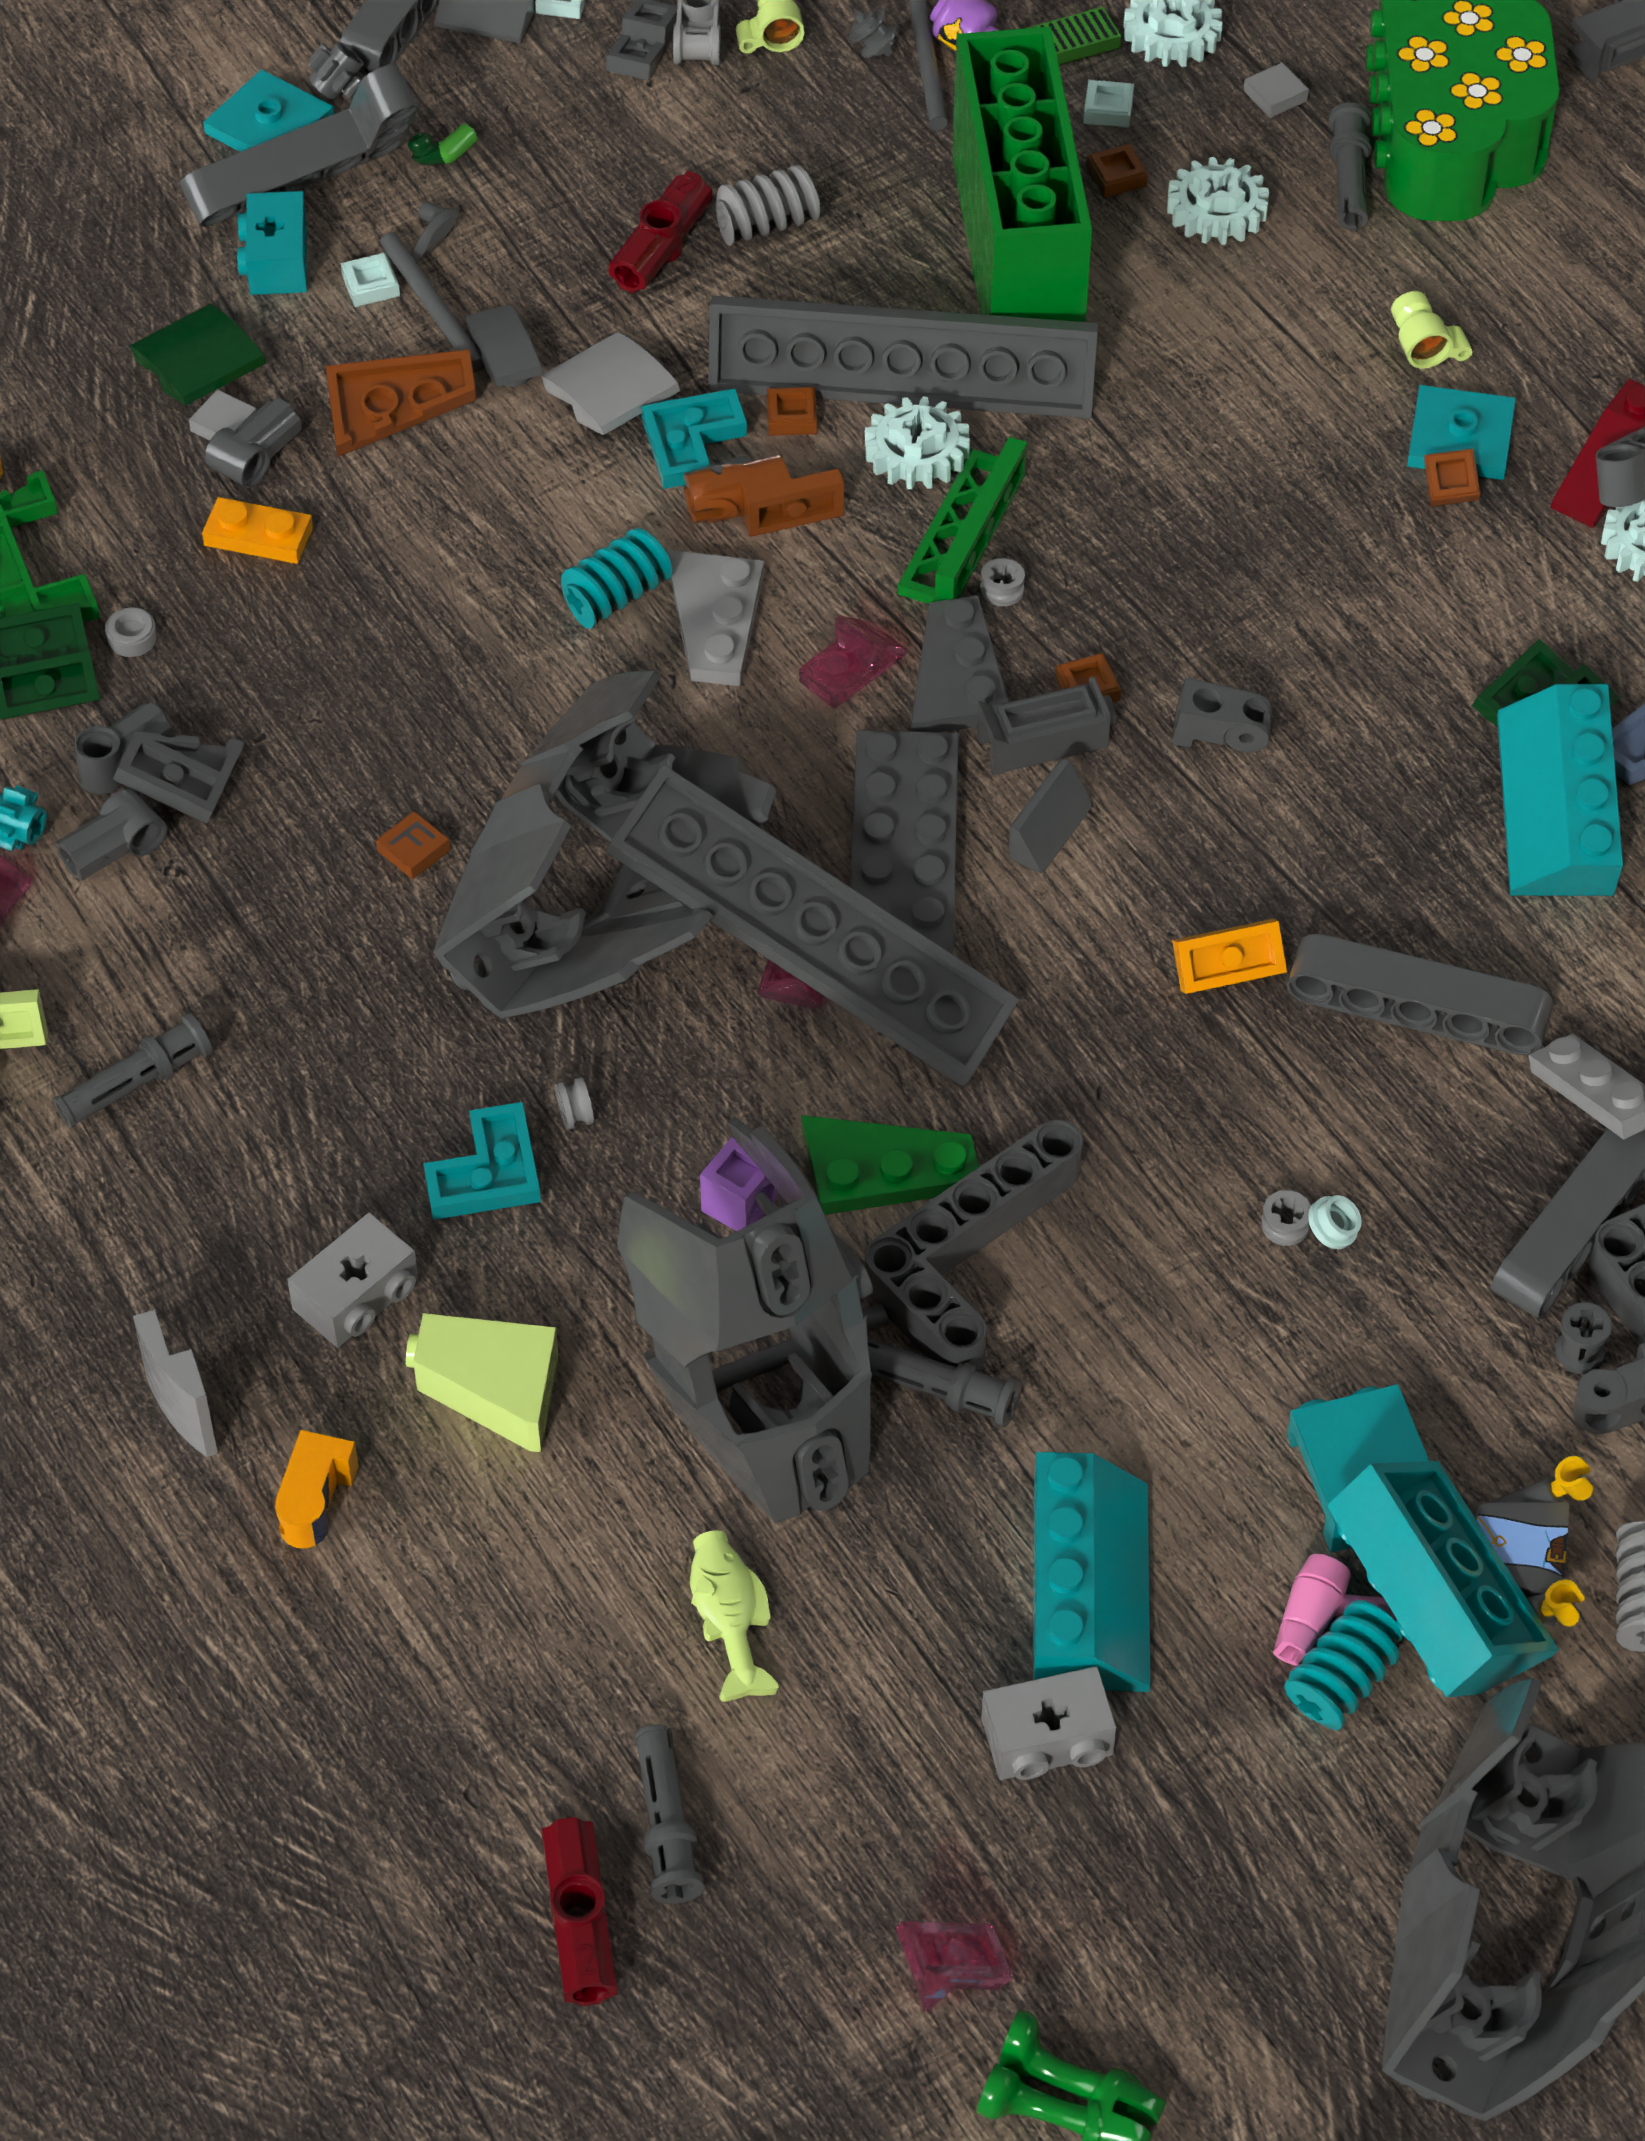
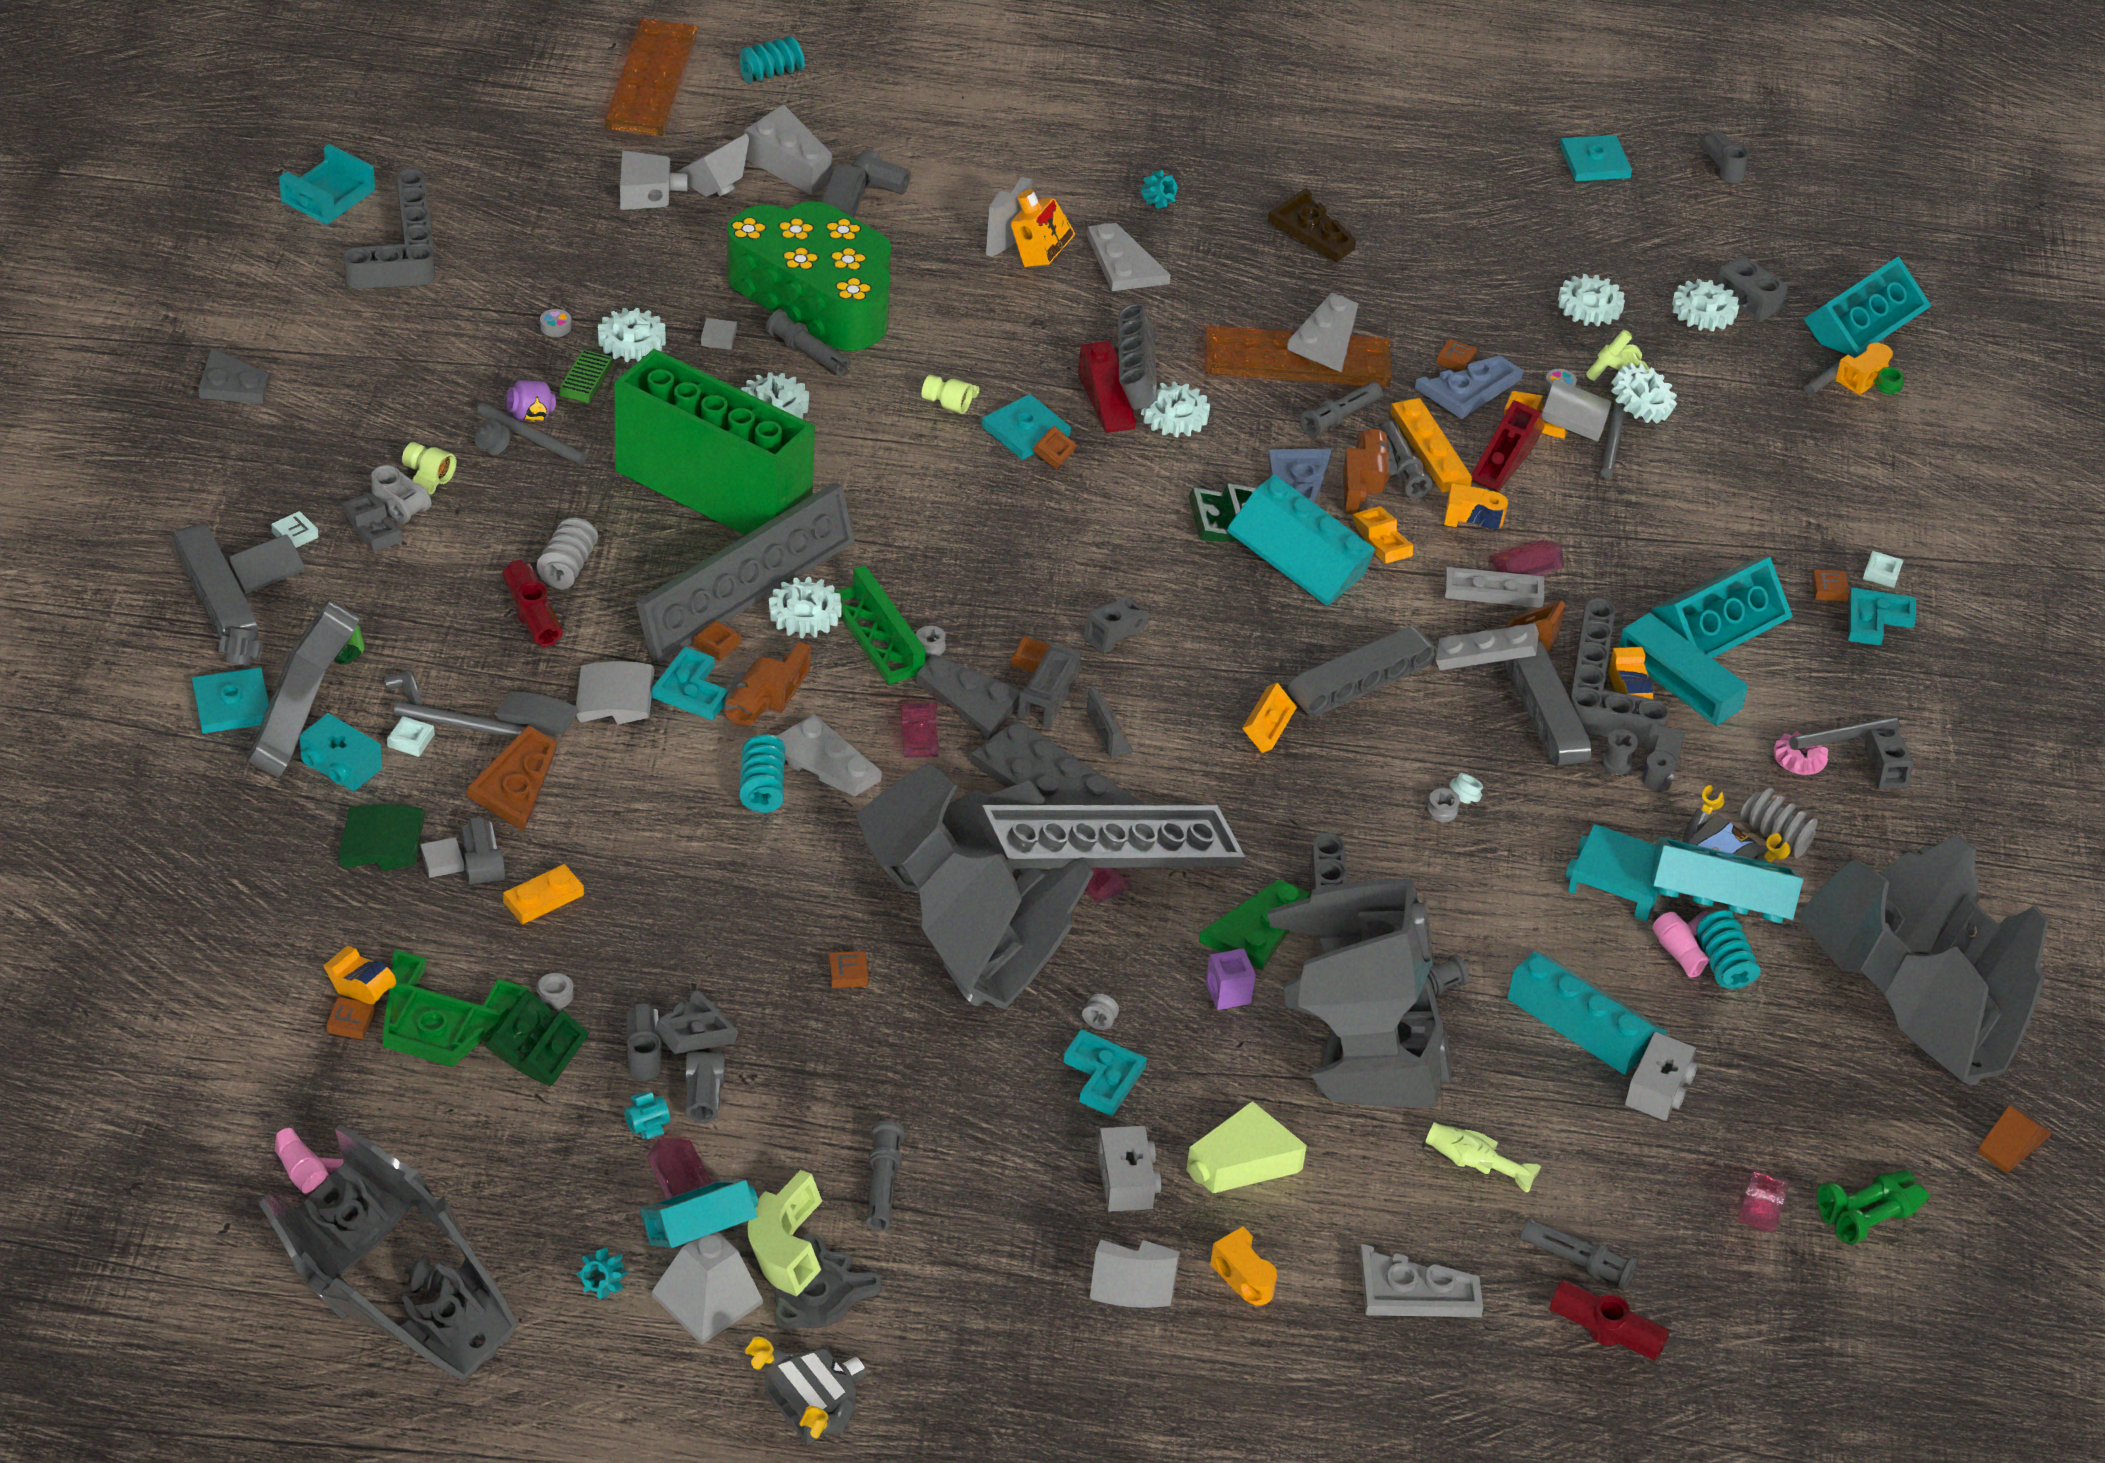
camera: 55 degrees left, 10 degrees down
(442, 1676) = (1409, 1289): none -> light grey wing

